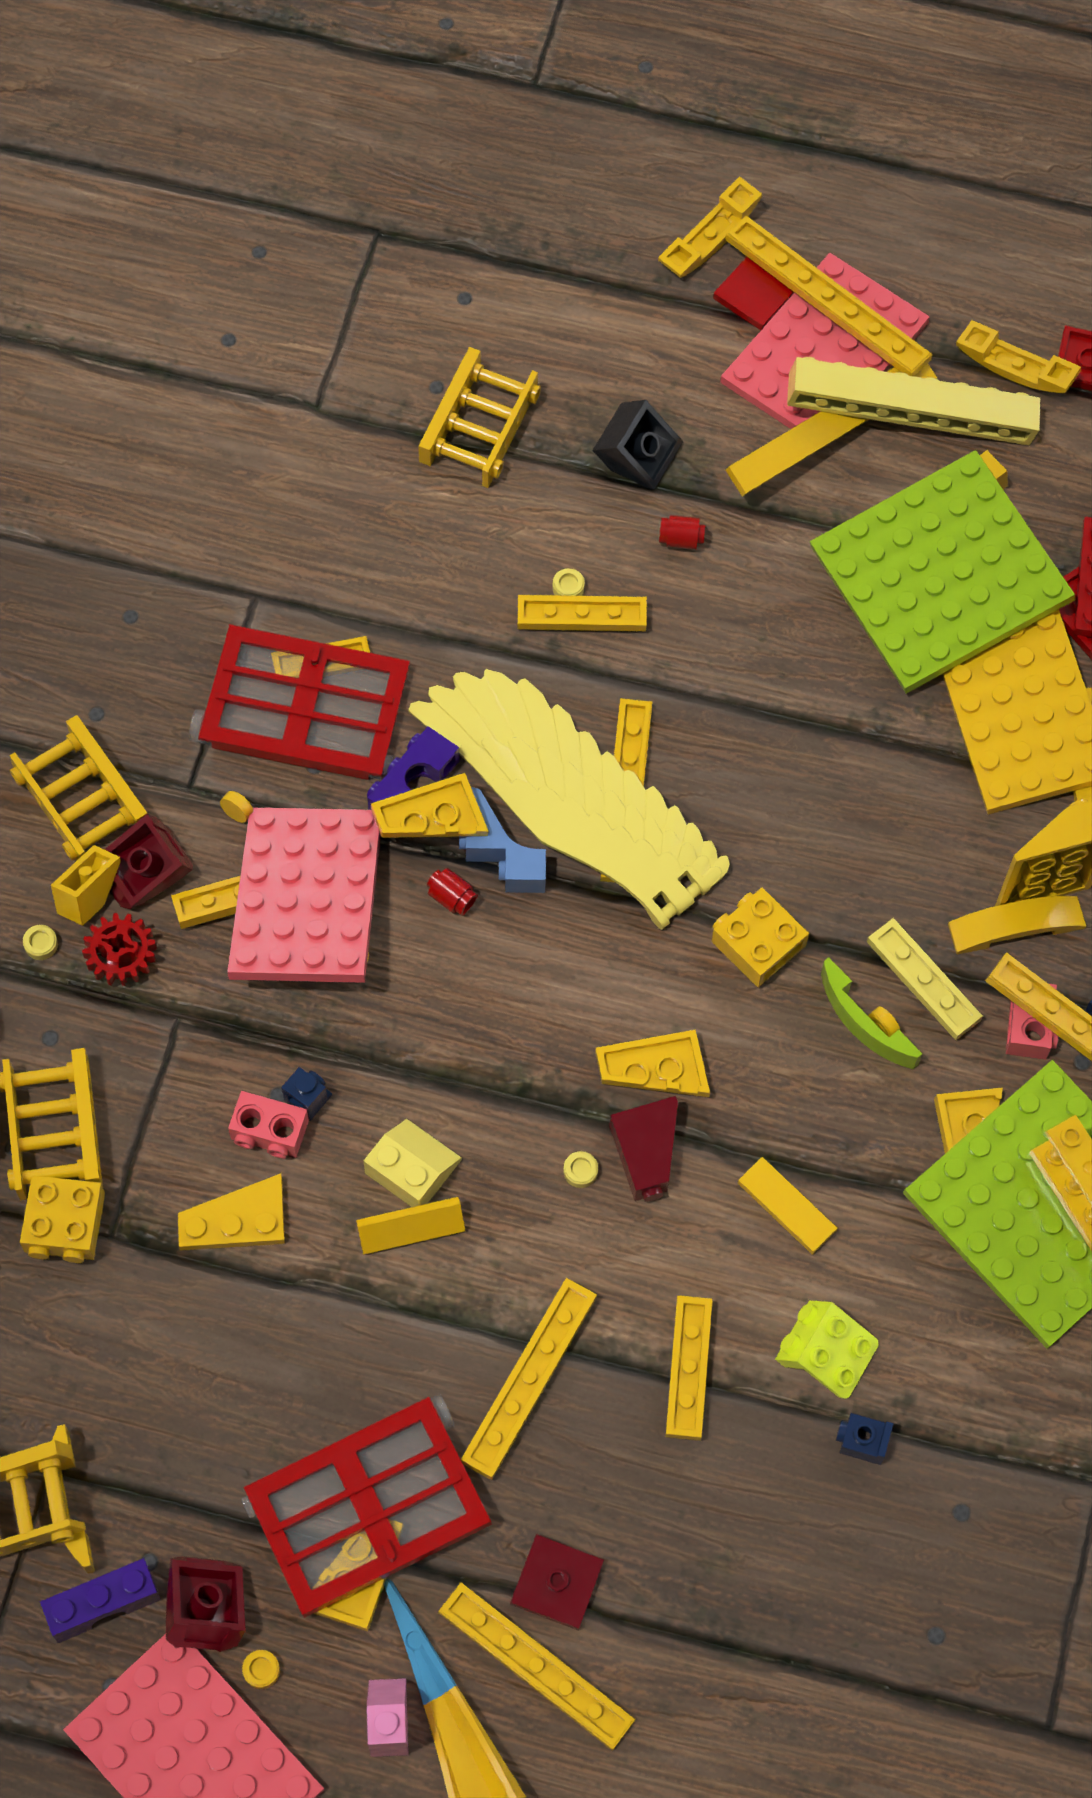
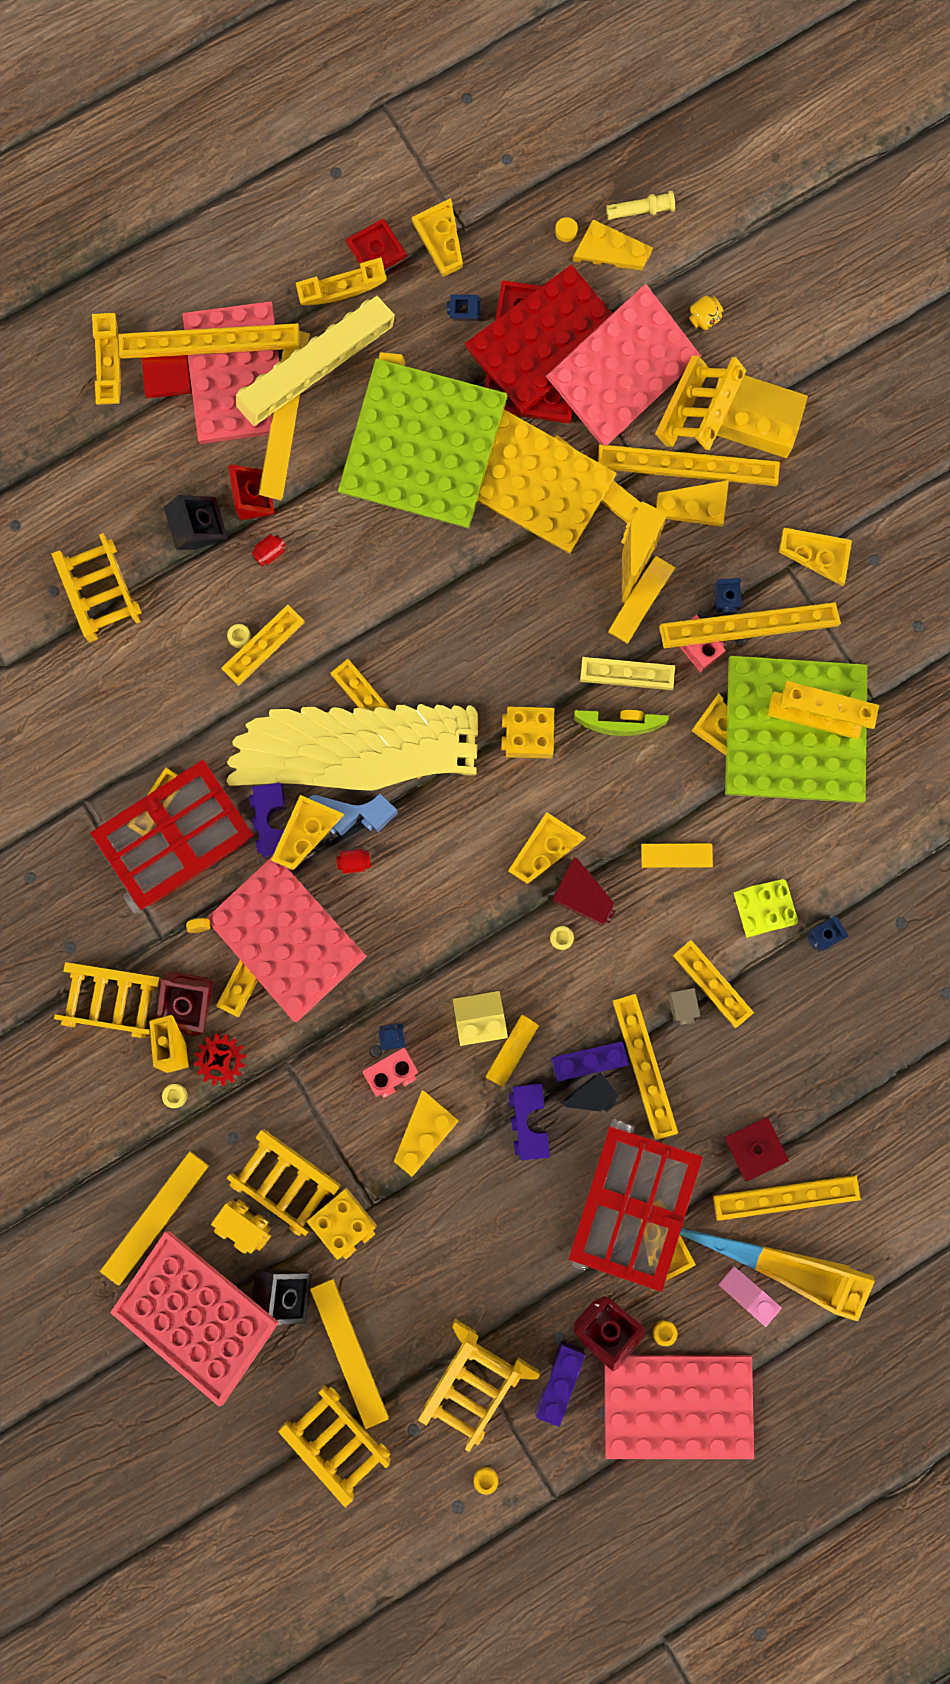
camera: 45 degrees left, 15 degrees up
(371, 1287) = (529, 1143): none -> dark purple arch
(442, 1343) = (592, 1095): none -> black slope
(463, 1301) = (589, 1061): none -> dark purple arch
(635, 1357) = (684, 1006): none -> dark tan brick
(708, 464) = (245, 489): none -> red slope

